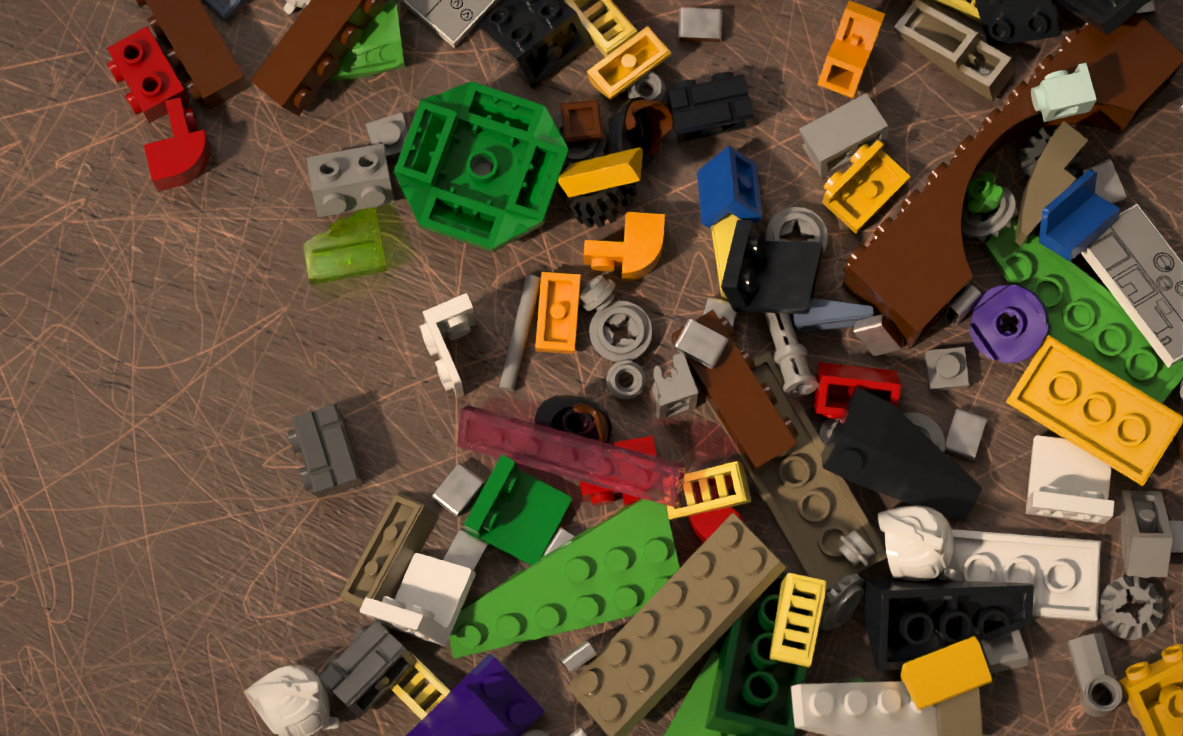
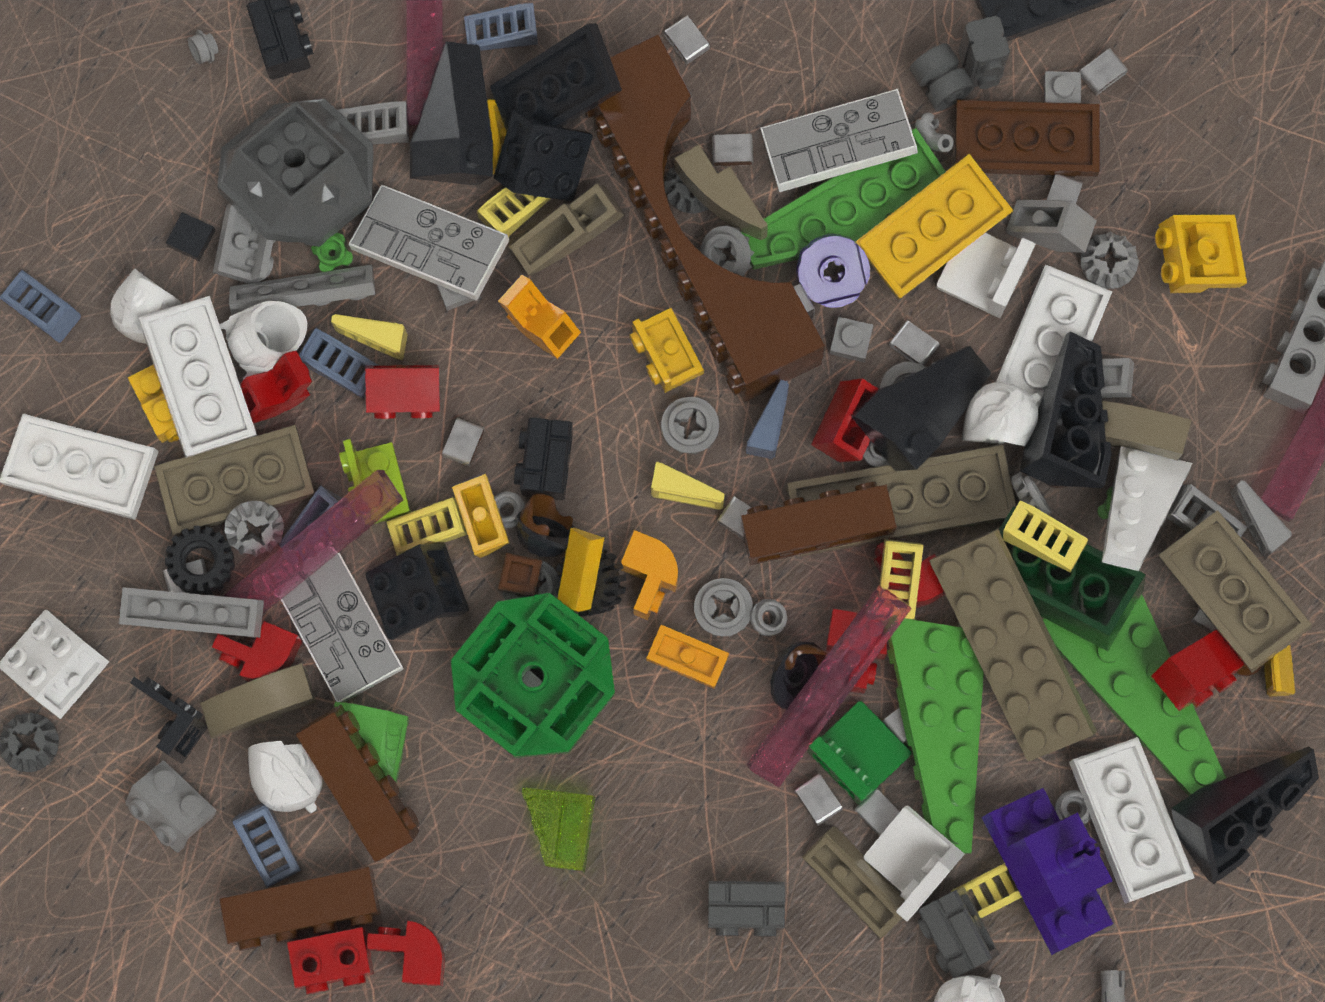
camera: 70 degrees left, 0 degrees up
(350, 182) = (501, 801): light grey brick -> none
(391, 132) = (469, 754): light grey plate -> none
(447, 320) = (679, 773): white bracket -> none
(520, 333) = (693, 697): light grey bar -> none
(577, 656) = (1005, 742): flat silver piece -> none
(597, 293) = (682, 615): light grey plate -> none
(676, 393) = (796, 572): light grey hinge -> none
(700, 343) = (770, 536): flat silver piece -> none
(729, 185) = (629, 467): blue panel -> none
(770, 273) = (722, 454): black bracket -> none
(790, 356) = (799, 465): light grey pin -> none
(839, 134) = (612, 351): light grey hinge -> none
(856, 549) = (991, 468): light grey plate -> none
(878, 335) = (805, 384): flat silver piece -> none
(946, 673) = (1126, 430): yellow slope -> none
(983, 193) = (719, 247): bright green plate -> none
(1064, 94) = (658, 145): light aqua brick -> none
(1076, 218) = (763, 180): blue panel -> none
(1094, 670) = (1155, 309): light grey piece -> none

